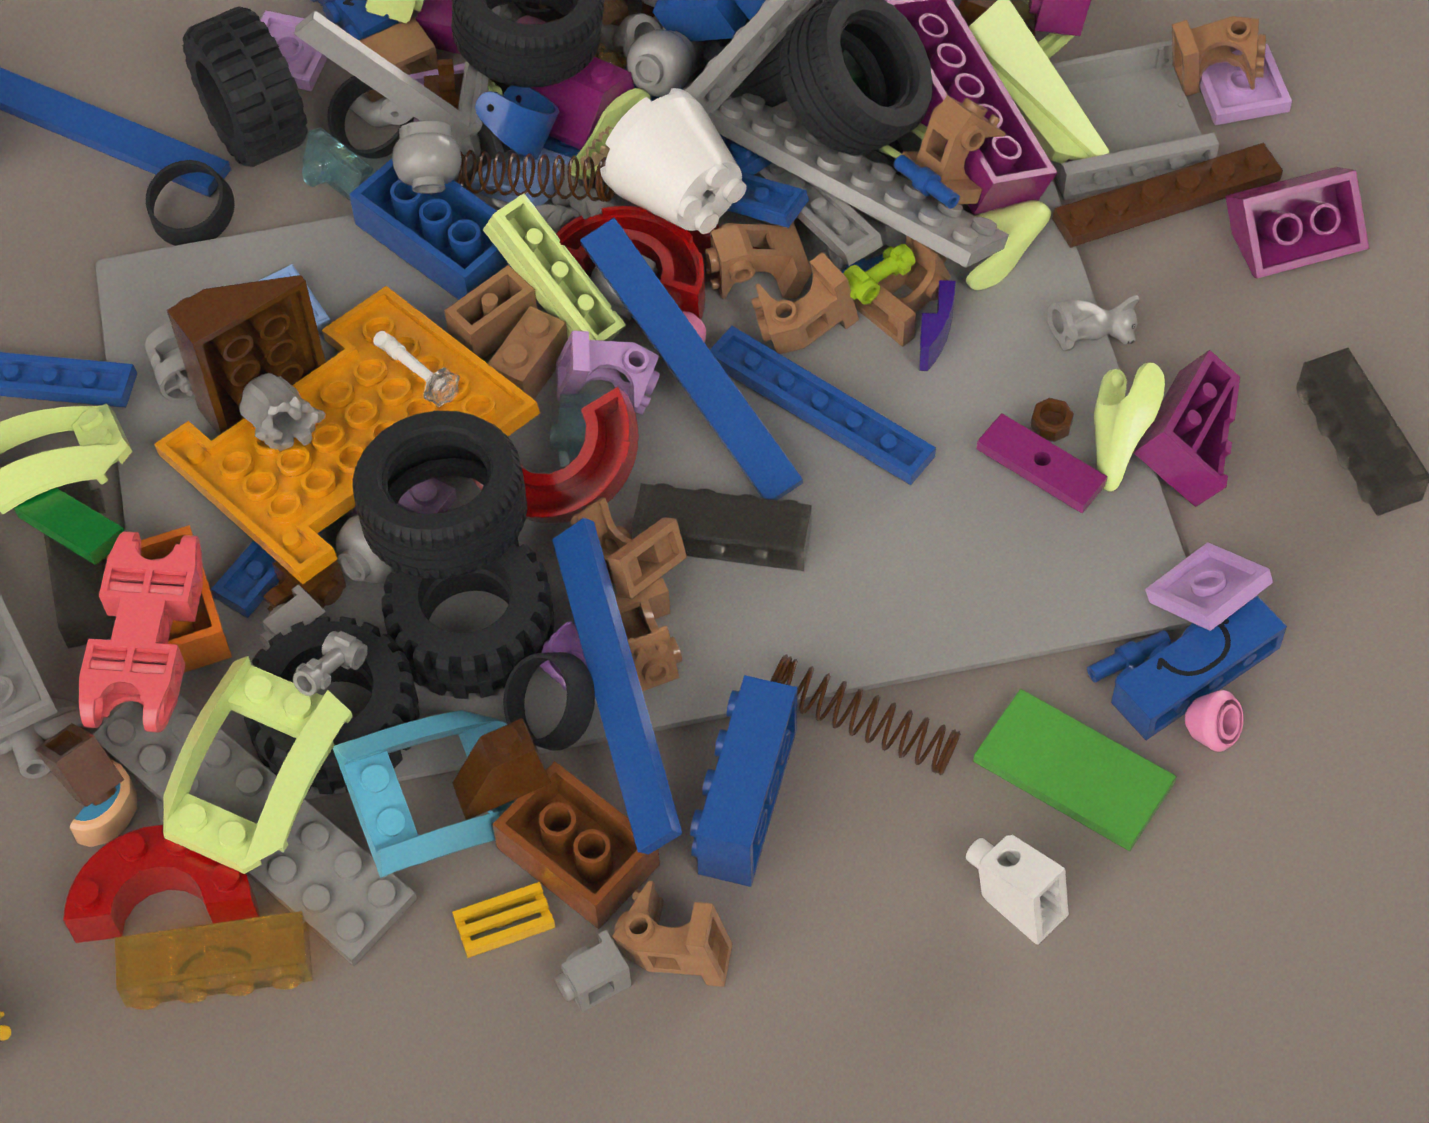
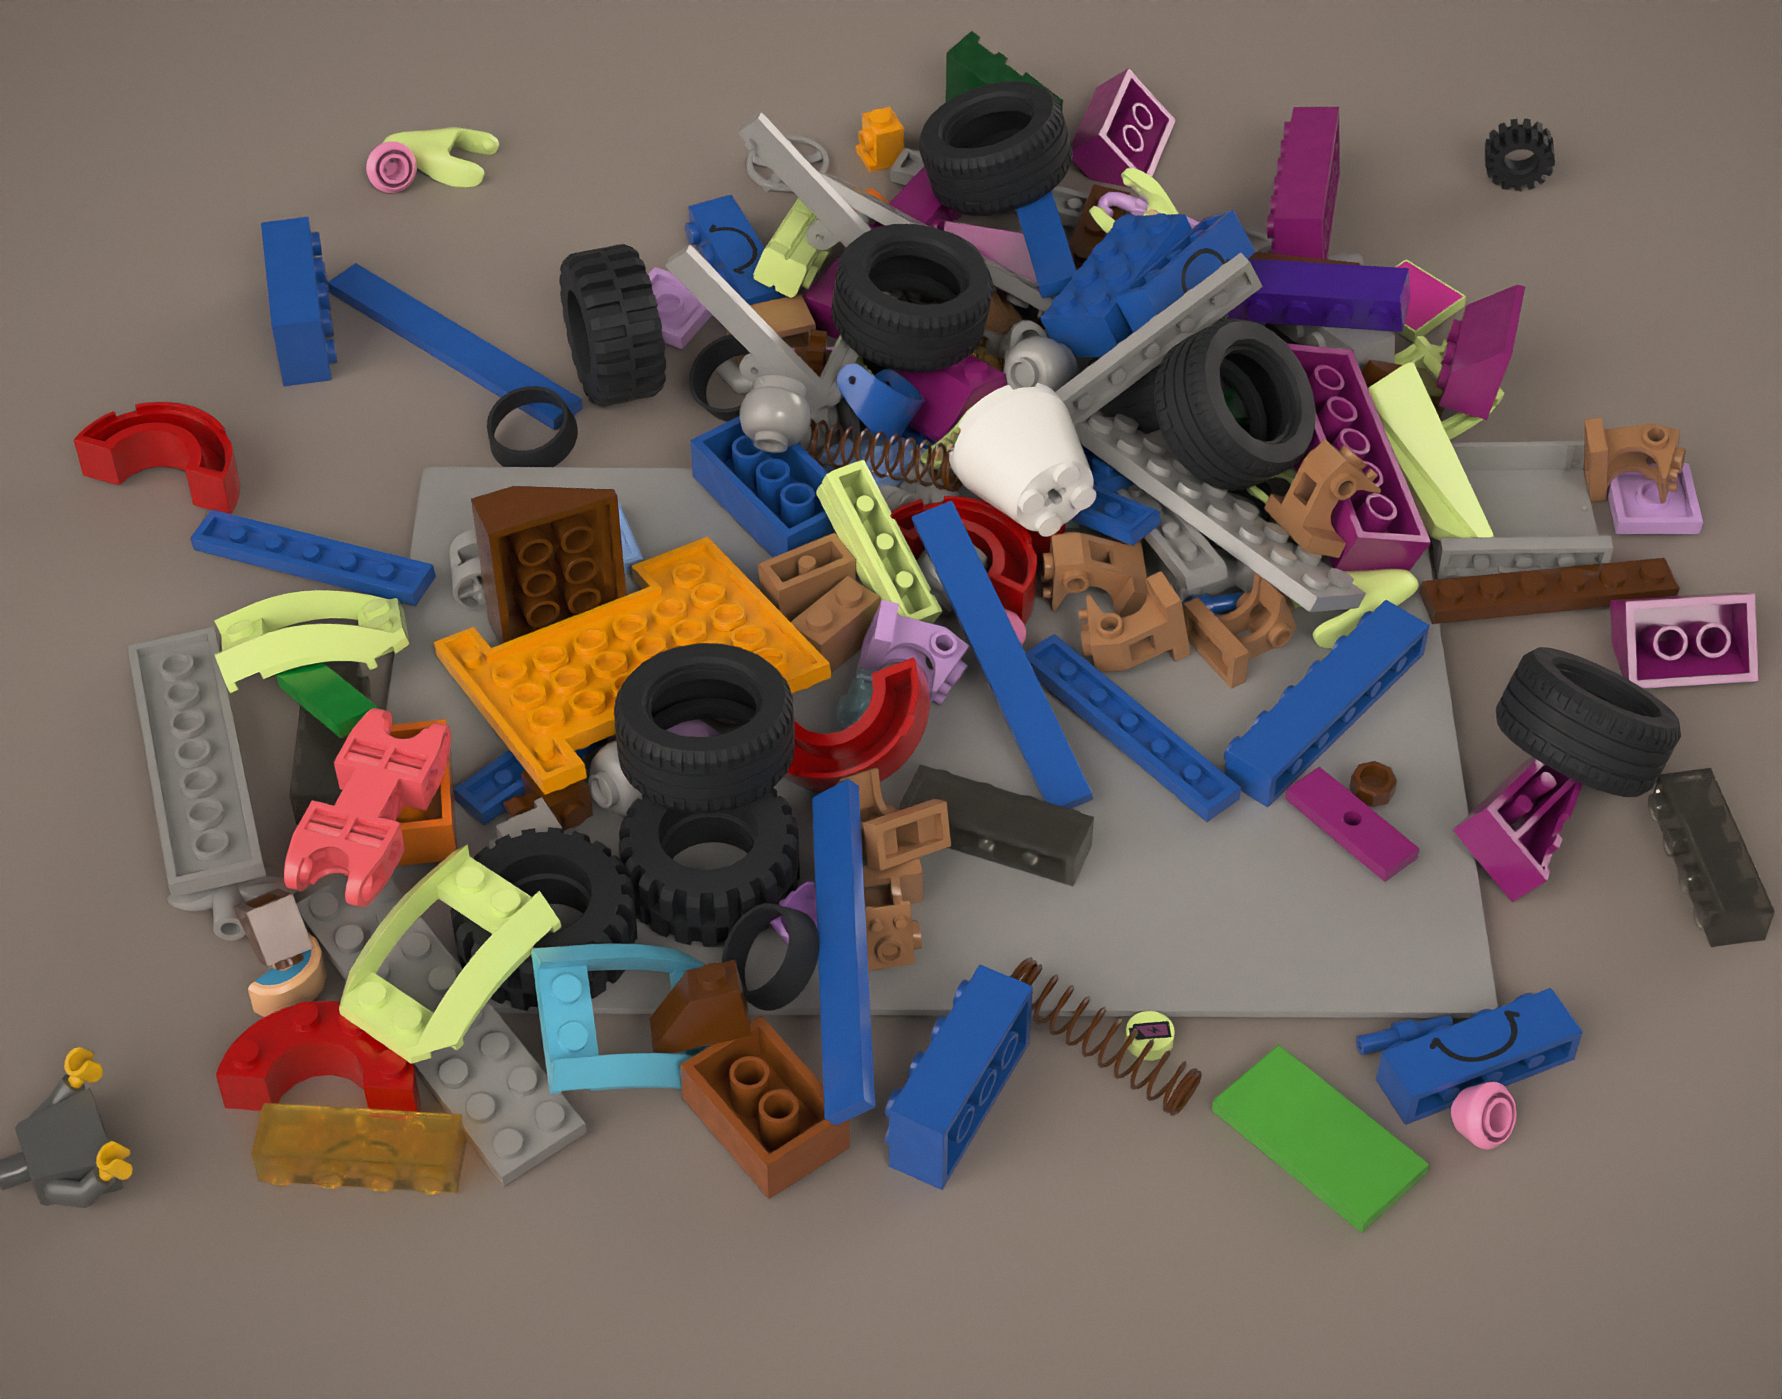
camera: 10 degrees right, 10 degrees down
(278, 412) = (563, 628): light grey piece -> none
(332, 163) = (682, 414): clear light blue tile -> none
(337, 651) = (561, 859): light grey bar -> none
(440, 386) = (733, 629): piece -> none
(499, 904) = (670, 1163): yellow tile -> none
(594, 973) = (751, 1240): light grey brick -> none
(692, 949) = (846, 1228): medium nougat tile -> none
(865, 284) = (1201, 614): lime bar -> none
(907, 696) = (1150, 1026): none -> yellowish green tile
(926, 181) = (1287, 523): blue bar -> none
(936, 326) = (1270, 672): dark purple slope -> none
(993, 347) = (1325, 702): none -> blue brick
(1021, 885) = (1233, 1239): white torso -> none
(1086, 321) = (1428, 694): light grey animal -> none
(1122, 420) = (1448, 790): yellowish green animal -> none
(1209, 586) = (1505, 975): lavender plate -> none
(1234, 327) = (1587, 722): none -> black tyre

